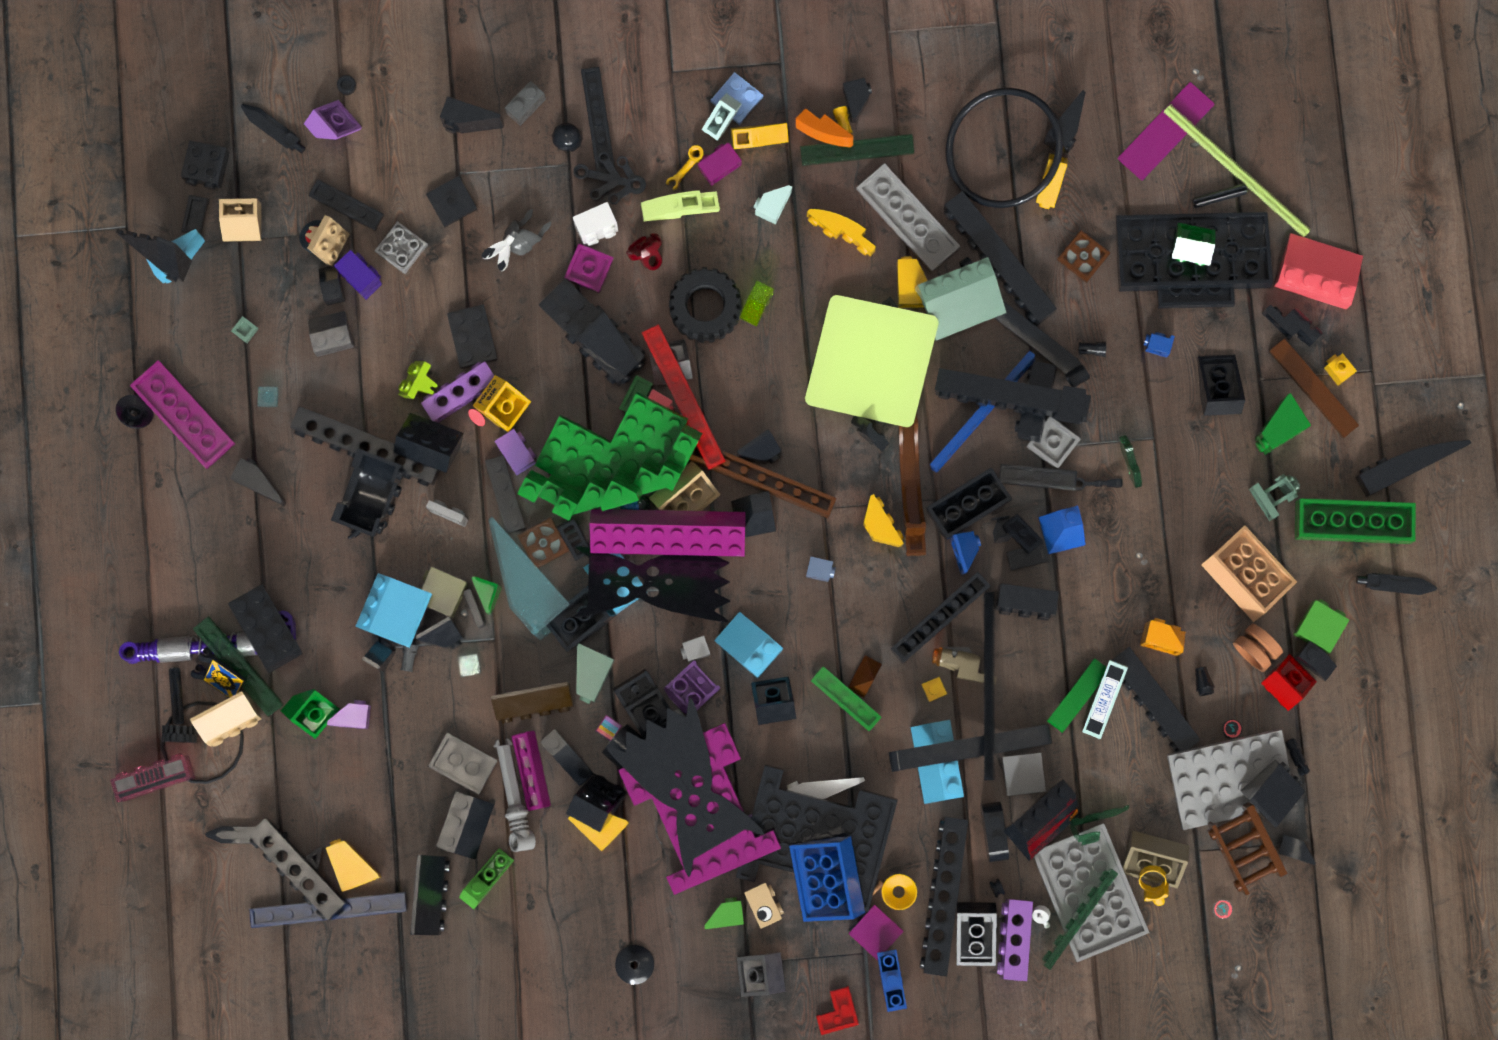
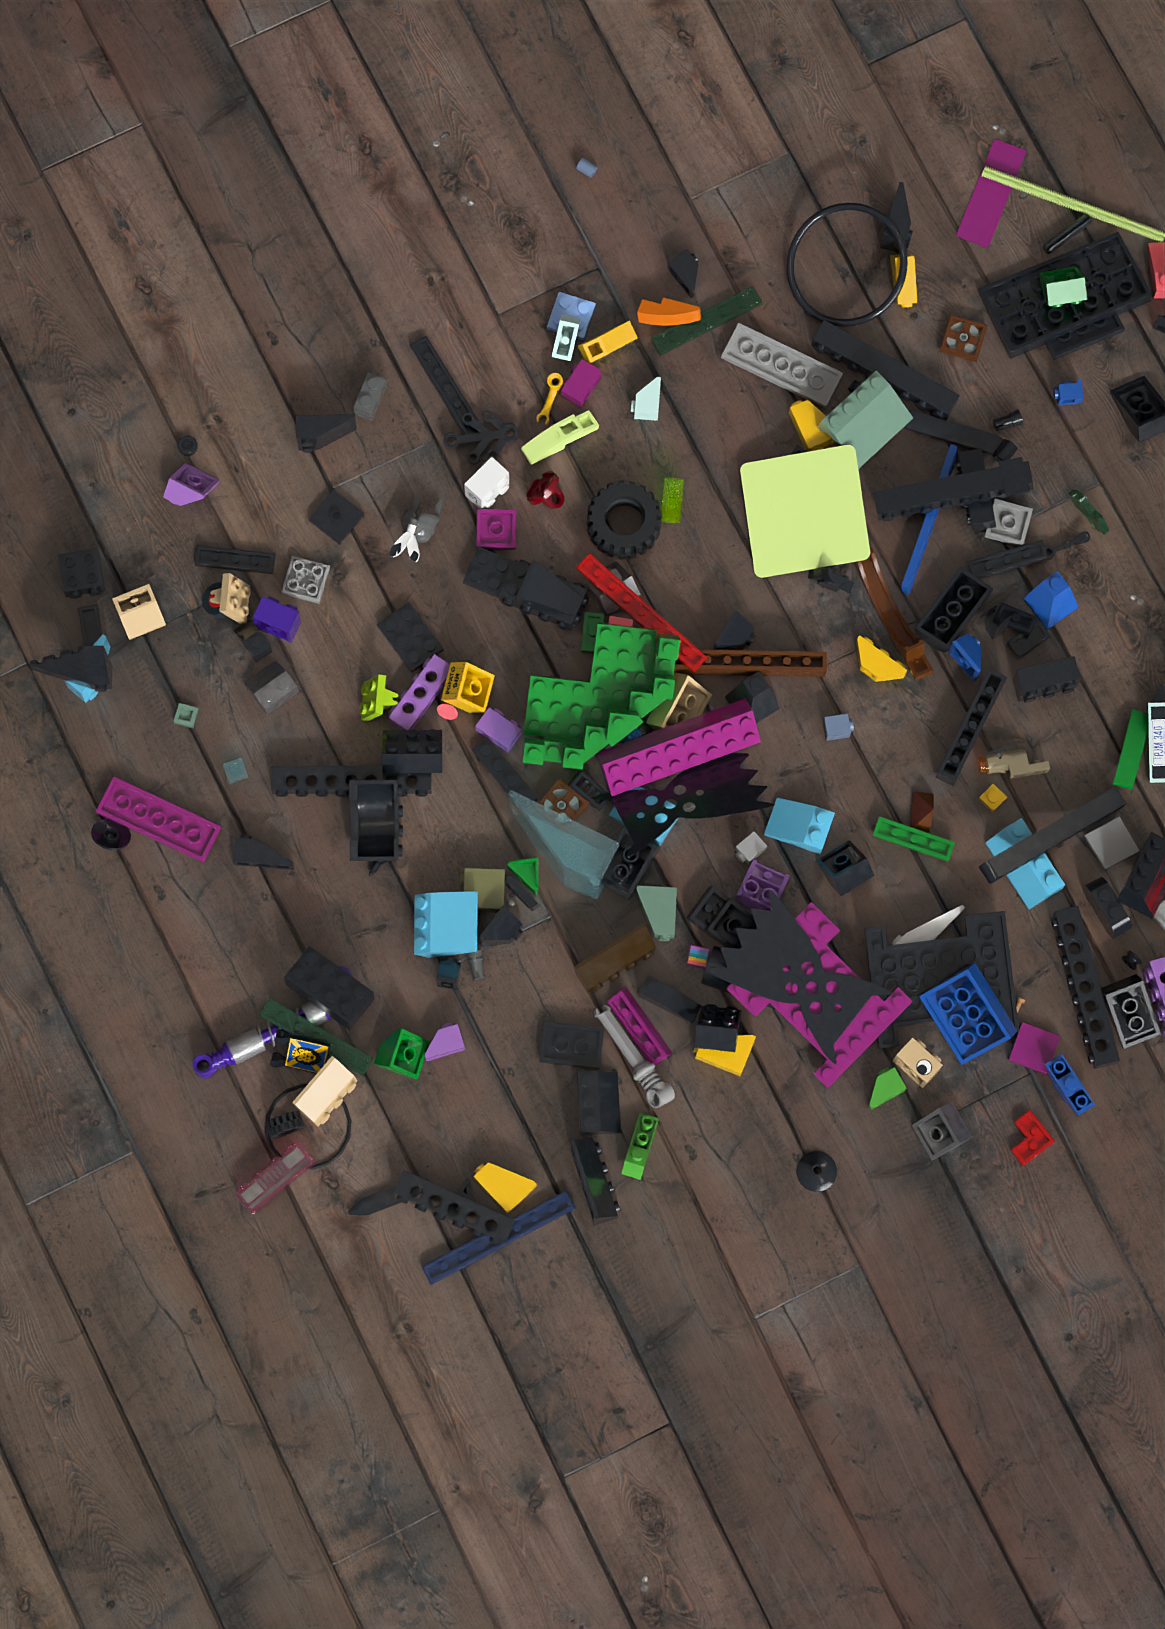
camera: 25 degrees left, 5 degrees down
(176, 696) = (264, 1090): black axle -> none
(273, 128) = (132, 513): black piece -> none
(440, 509) = (459, 812): light grey plate -> none
(469, 665) = (538, 950): clear light blue plate -> none
(567, 137) = (423, 413): black hair -> none
(836, 224) = (716, 397): yellow slope -> none
(841, 115) = (679, 294): yellow pin -> none
(907, 899) = (1046, 991): yellow piece -> none
(989, 685) = (1045, 770): black axle -> none

